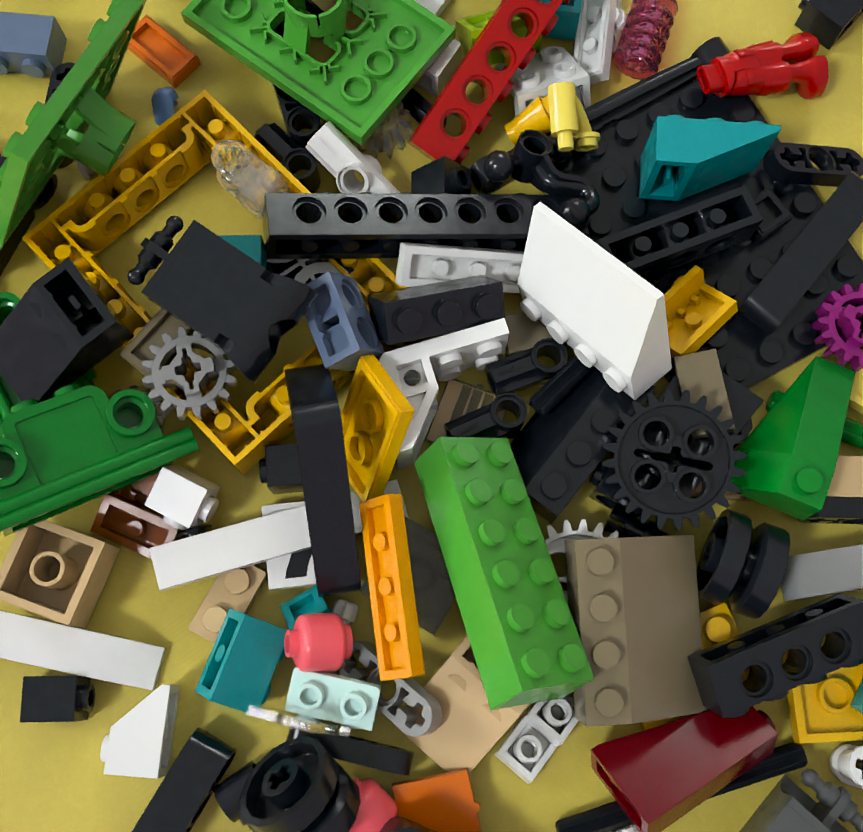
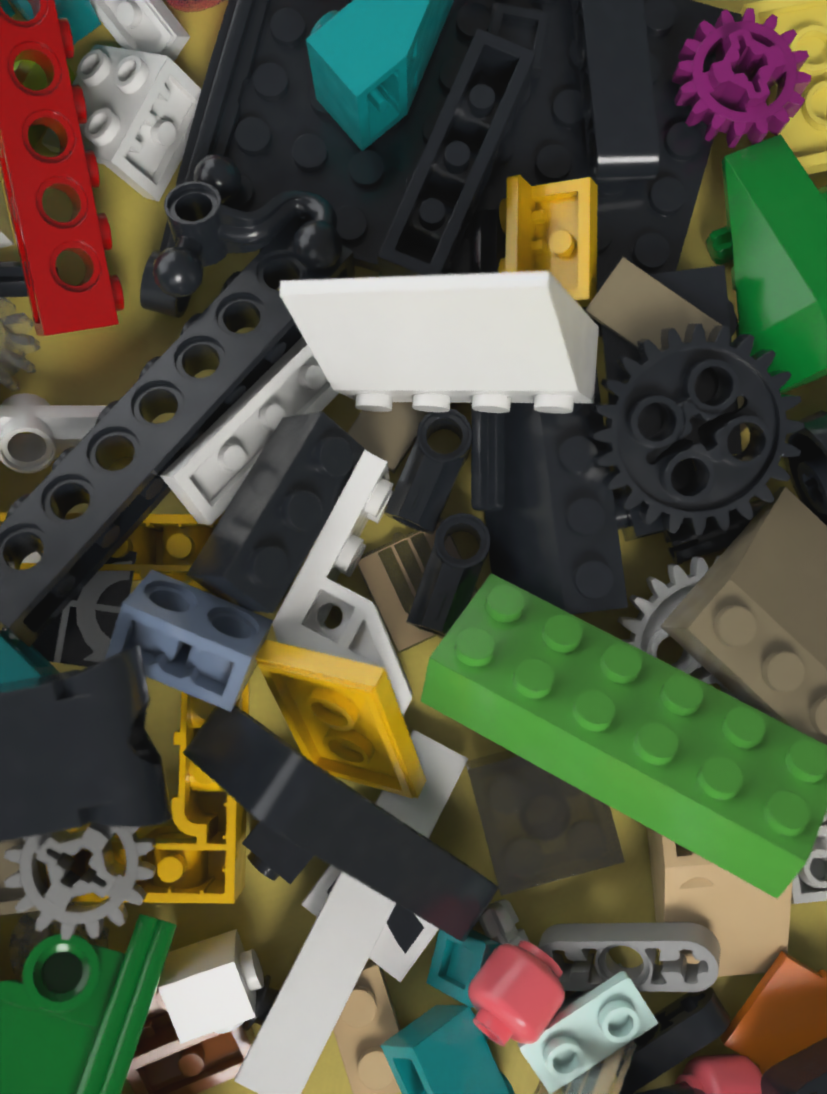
camera: 45 degrees left, 10 degrees up
(391, 588) = (541, 869): light orange plate -> none
(441, 177) = (124, 347): black brick -> none
(533, 117) = (159, 166): yellow cone -> none
(569, 119) = (200, 134): light yellow plant -> none

